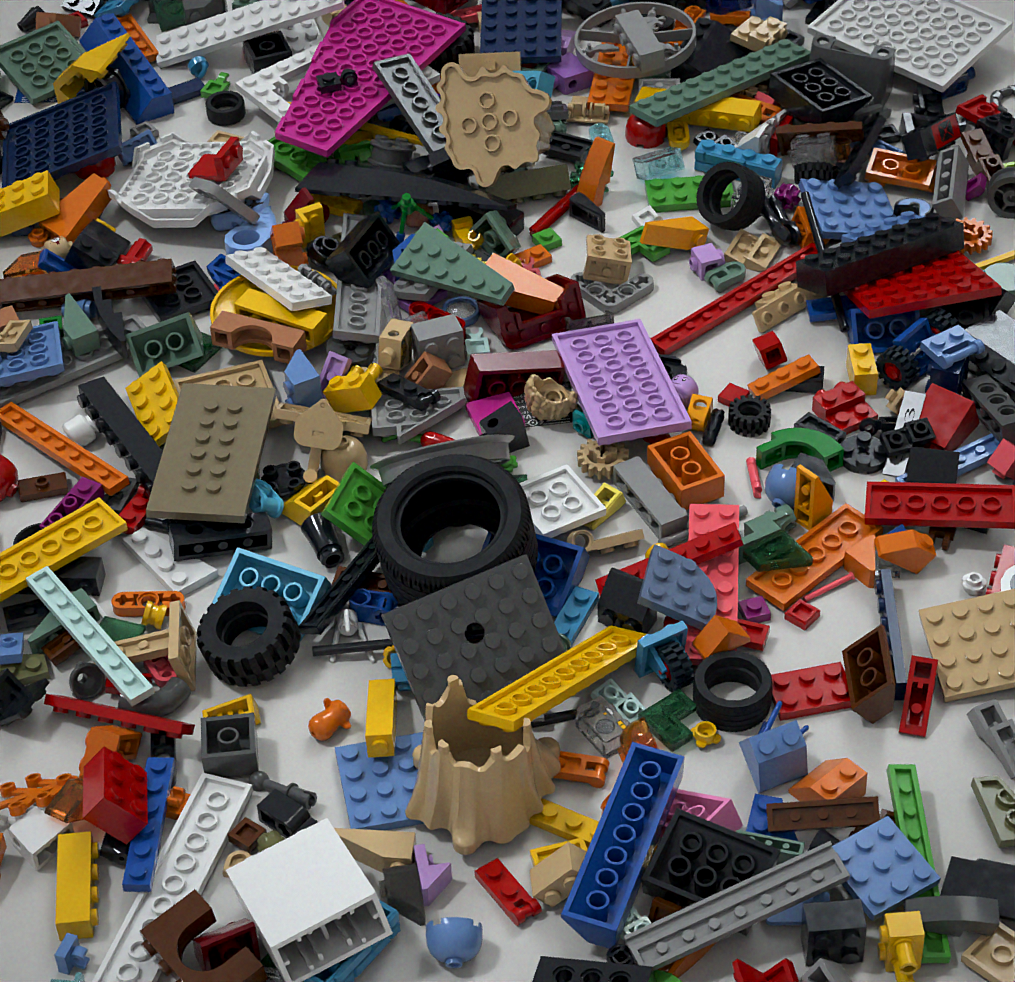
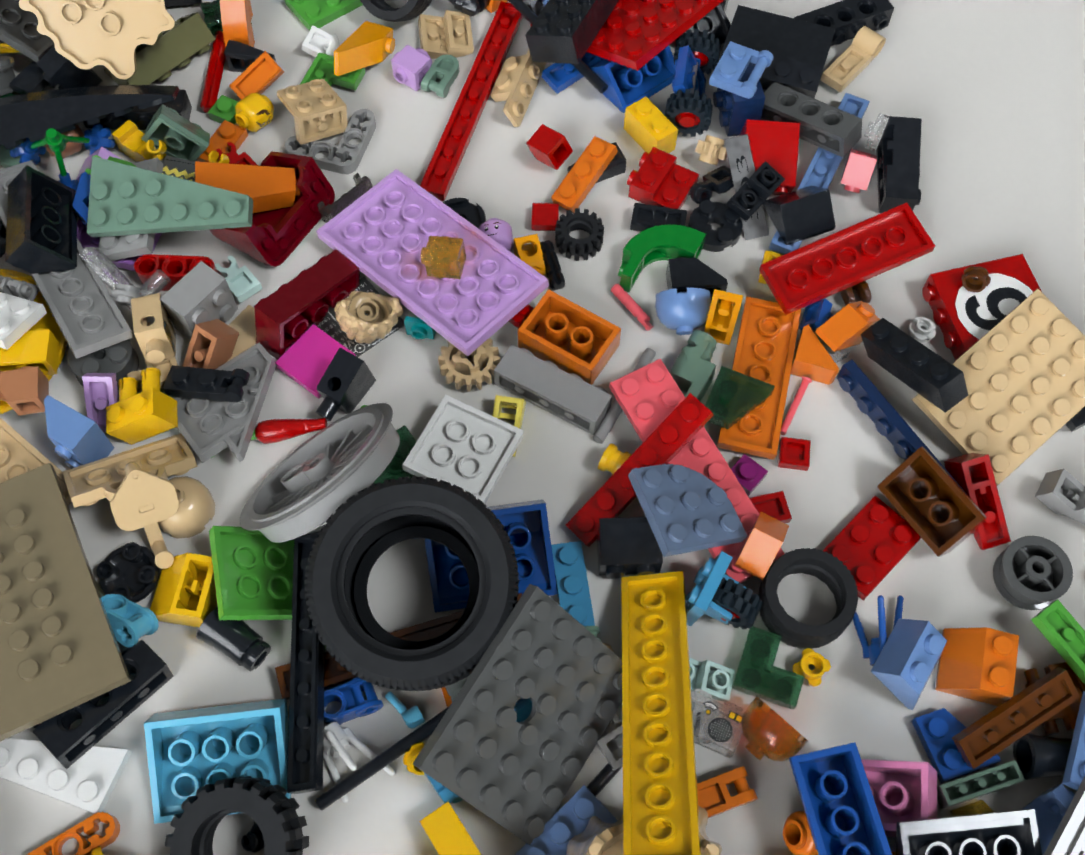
camera: 35 degrees left, 20 degrees up
(389, 313) = (124, 293): none -> light grey plate
(464, 308) = (191, 243): piece -> none
(564, 246) = (254, 112): none -> yellow head
(582, 225) = (257, 76): none -> orange tile
(607, 544) = (544, 472): tan plate -> none
(624, 376) = (444, 257): none -> clear yellow brick
(923, 746) = (1032, 572): none -> dark grey wheel
(930, 585) = (915, 365): none -> black brick

